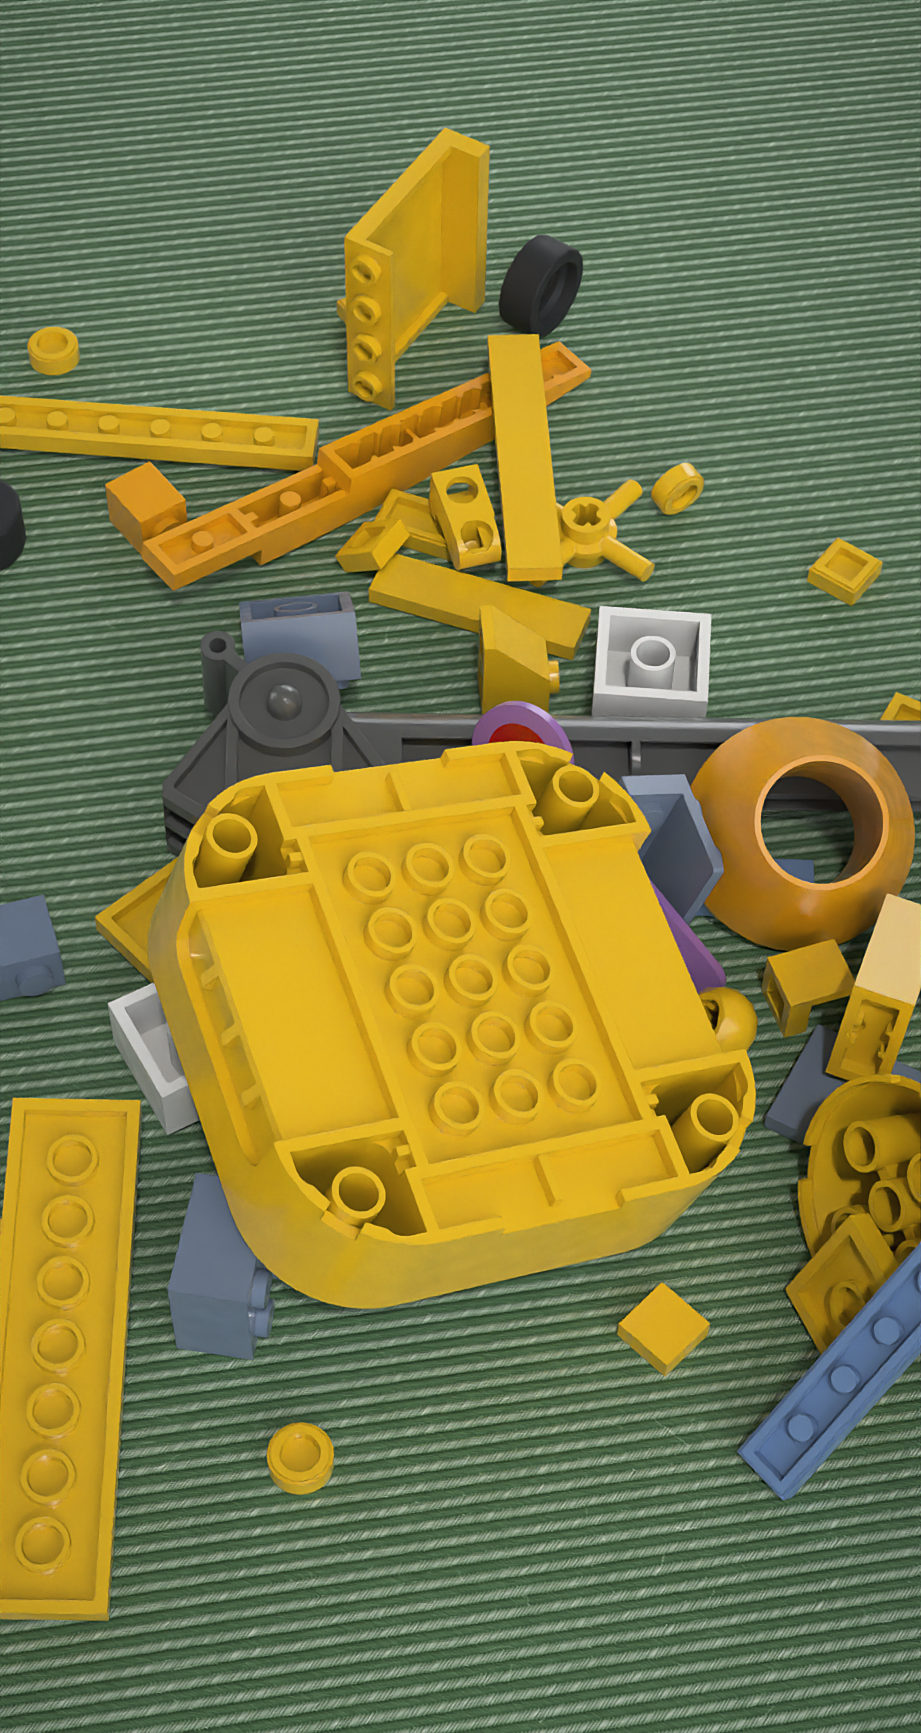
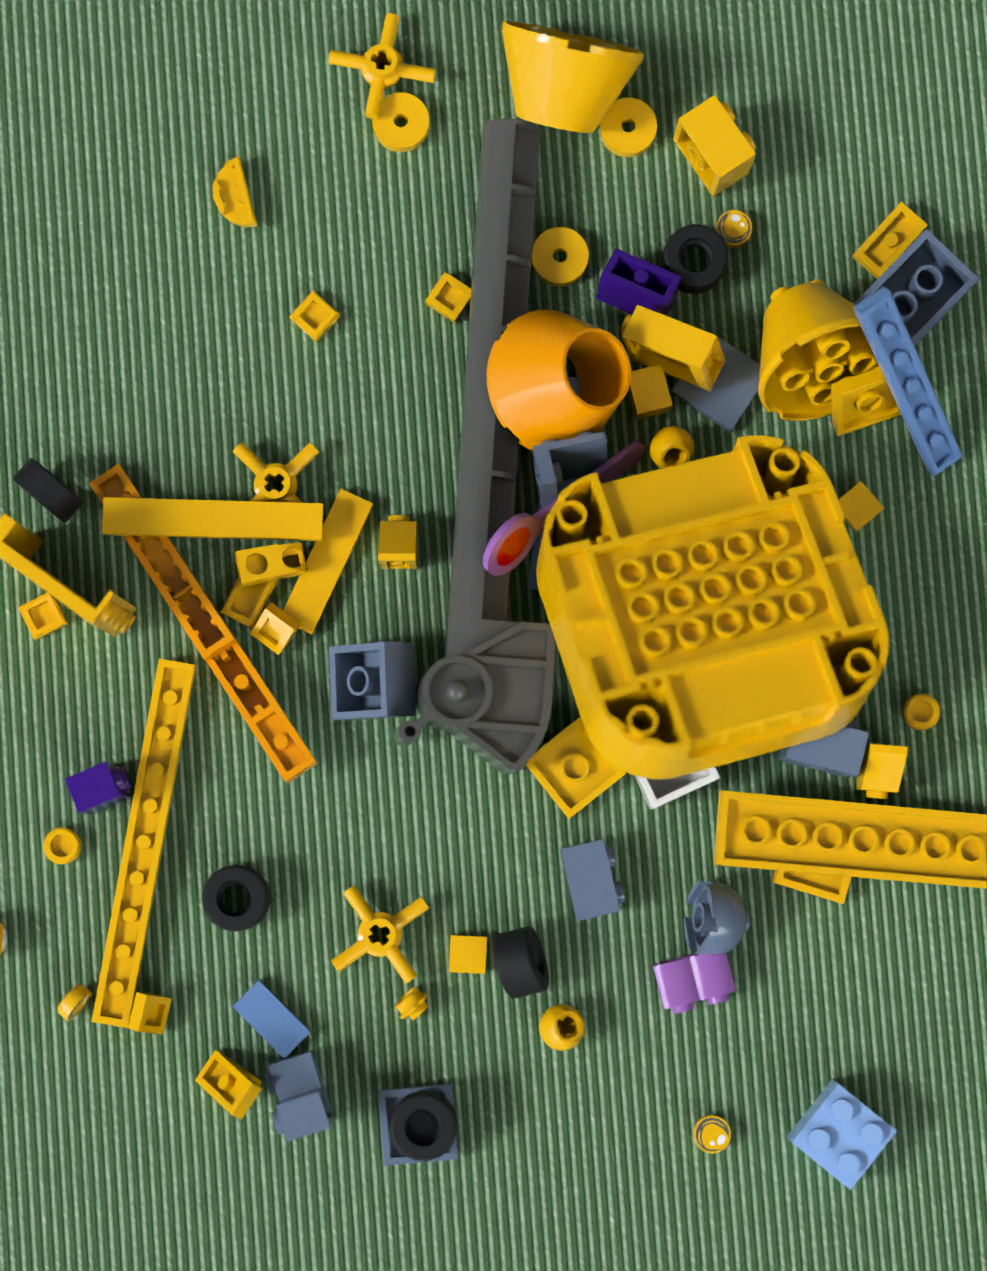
camera: 85 degrees left, 30 degrees up
(130, 351) = (99, 787): none -> dark purple brick
(144, 504) = (233, 779): light orange brick -> none
(189, 1371) = (881, 770): none -> yellow slope
(651, 663) = (409, 456): white brick -> none
(677, 489) = (241, 417): yellow tile -> none

